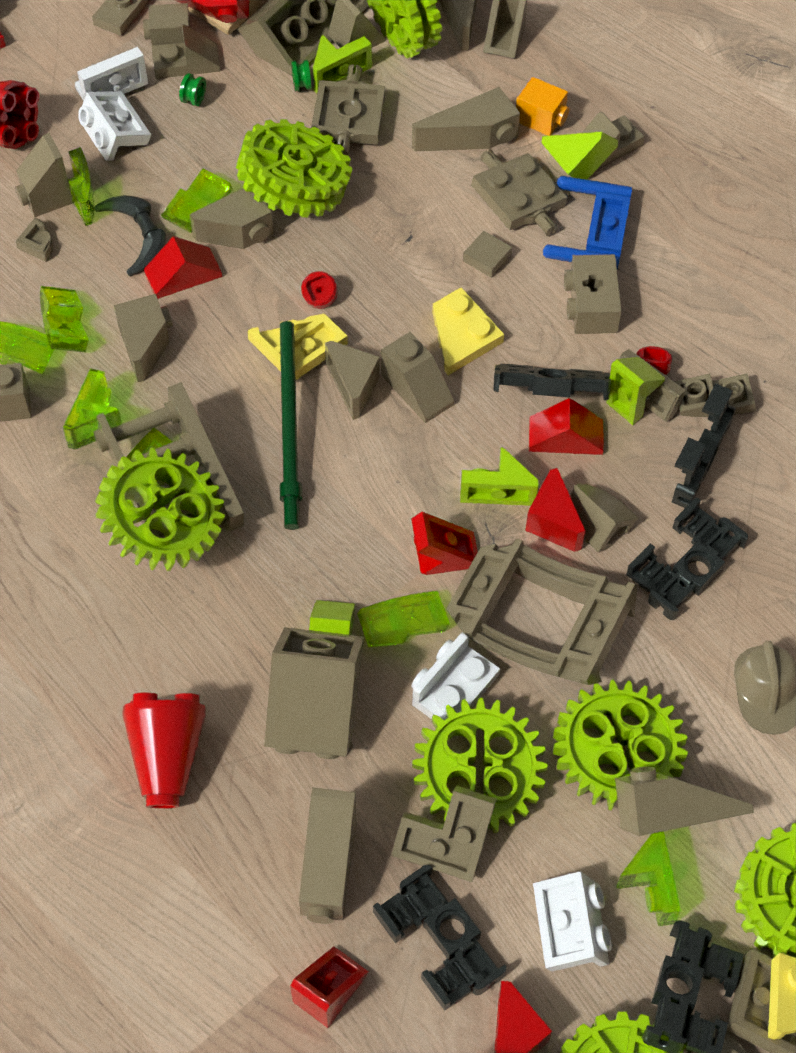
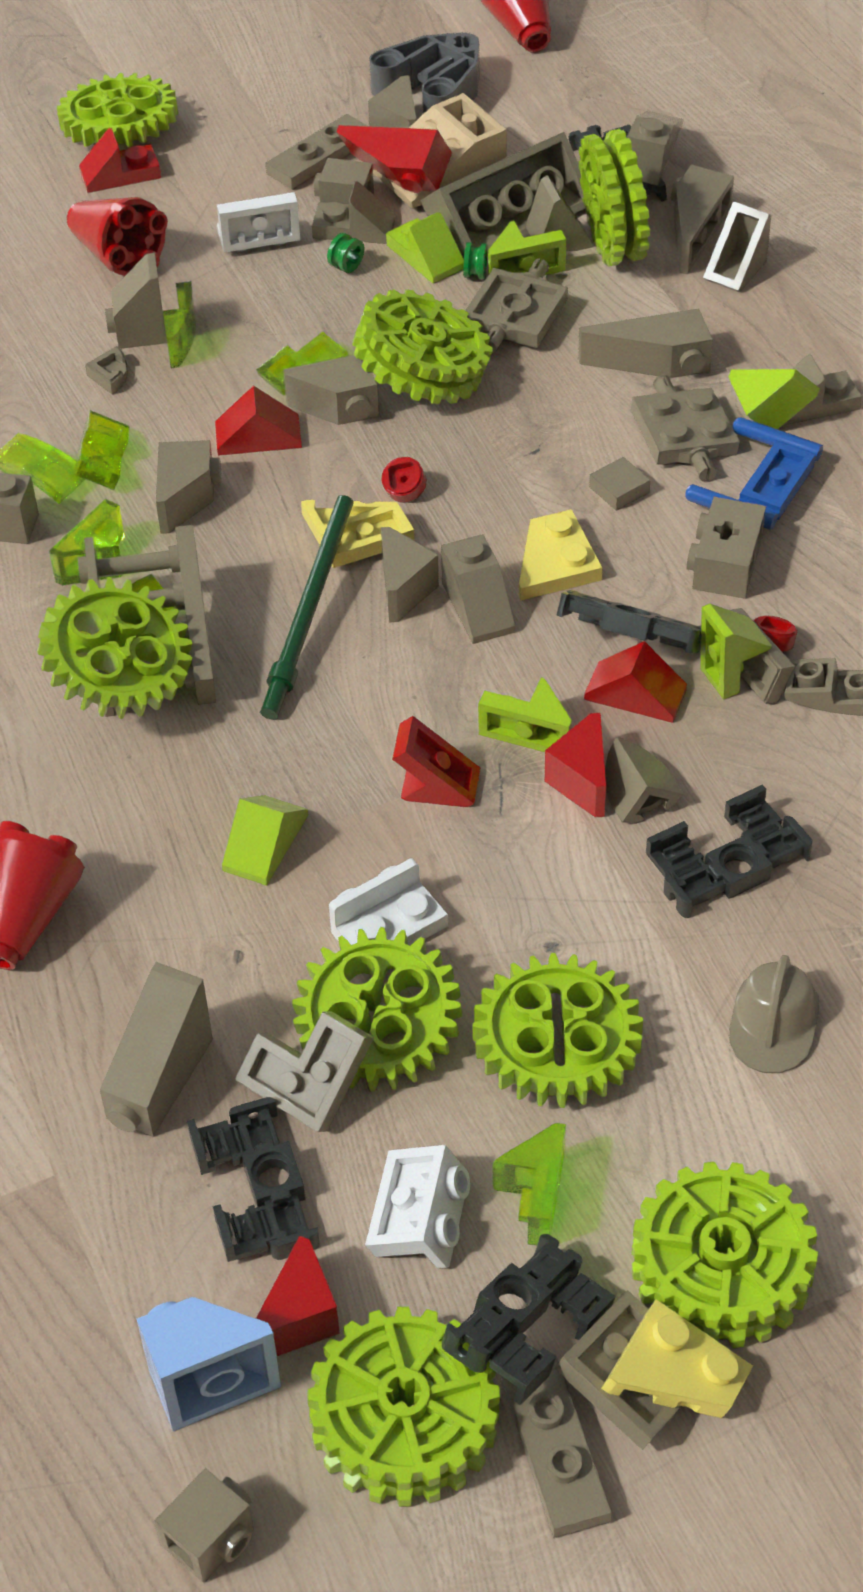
camera: 20 degrees right, 10 degrees down
(112, 122) = (241, 266): white bracket -> none
(140, 211) = (235, 364): pearl dark grey piece -> none
(255, 70) = (427, 247): none -> lime slope
(313, 692) = (210, 880): dark tan slope -> none
(327, 985) = (98, 1194): red slope -> none
(400, 617) = (343, 833): clear neon green slope -> none
(542, 106) = (746, 340): light orange brick -> none
(592, 634) = (593, 863): dark tan wedge -> none
(660, 803) = (583, 1094): dark tan slope -> none
(698, 455) = (783, 748): pearl dark grey piece -> none

